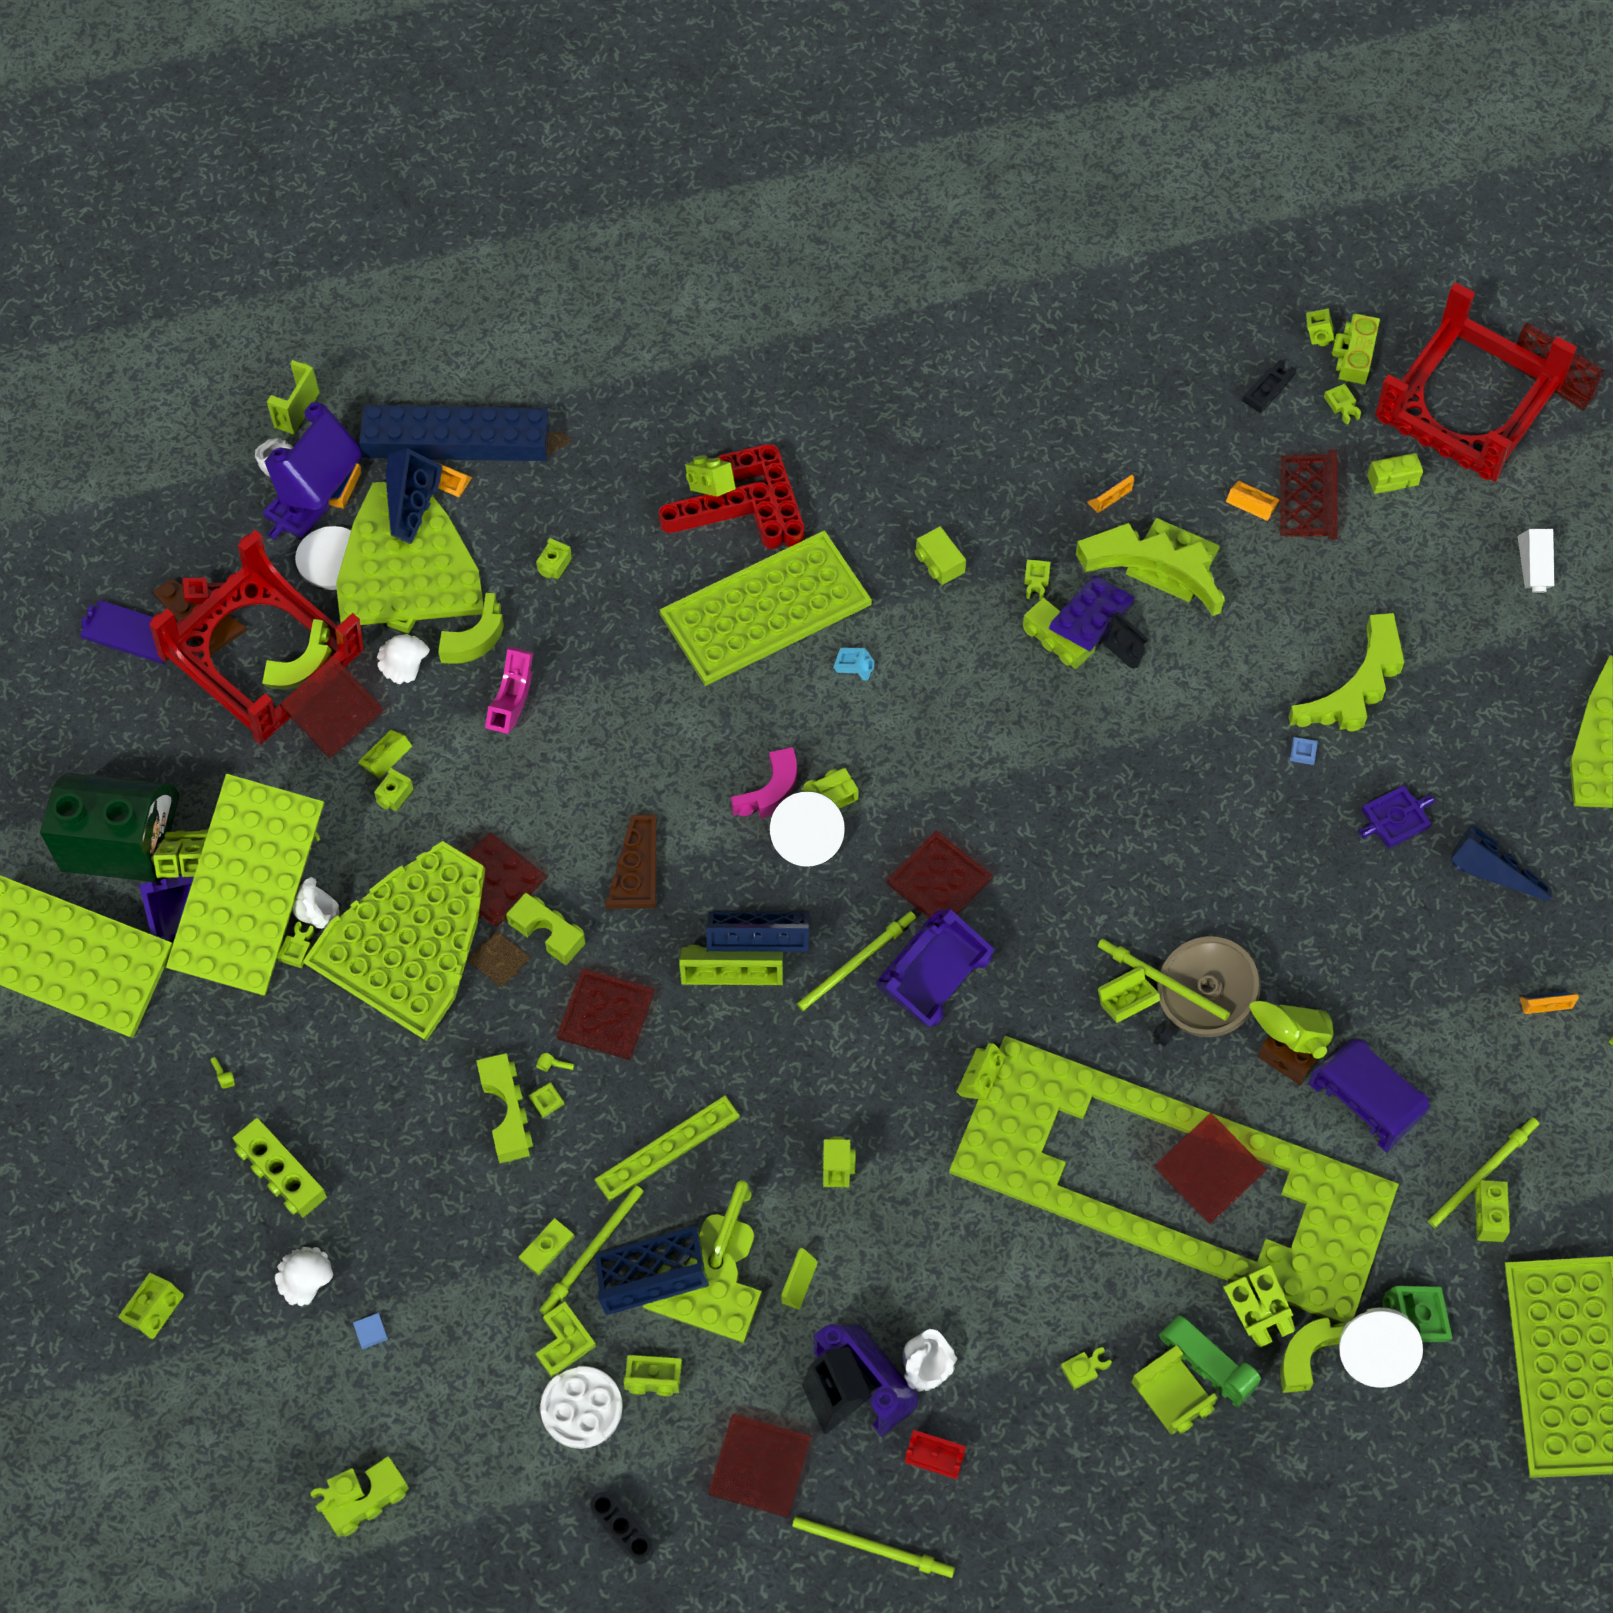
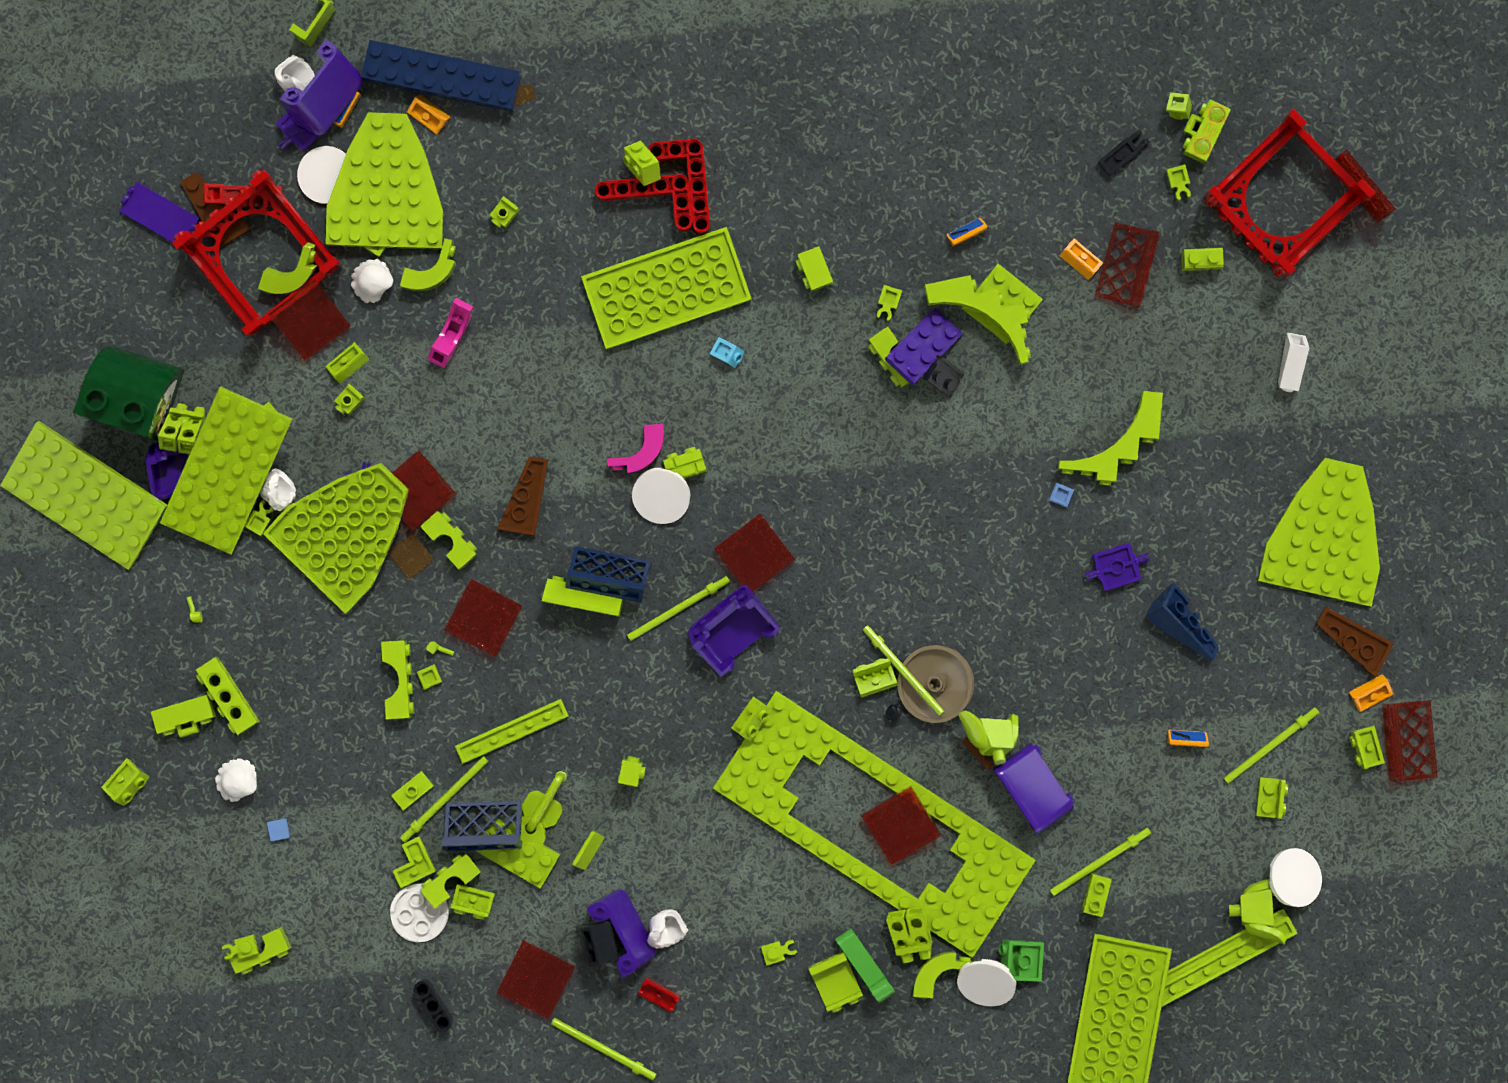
camera: 10 degrees right, 25 degrees up
(229, 1196) = (192, 711): none -> lime piece
(410, 485) = (395, 130): dark blue wedge -> none
(630, 1333) = (435, 891): none -> lime arch

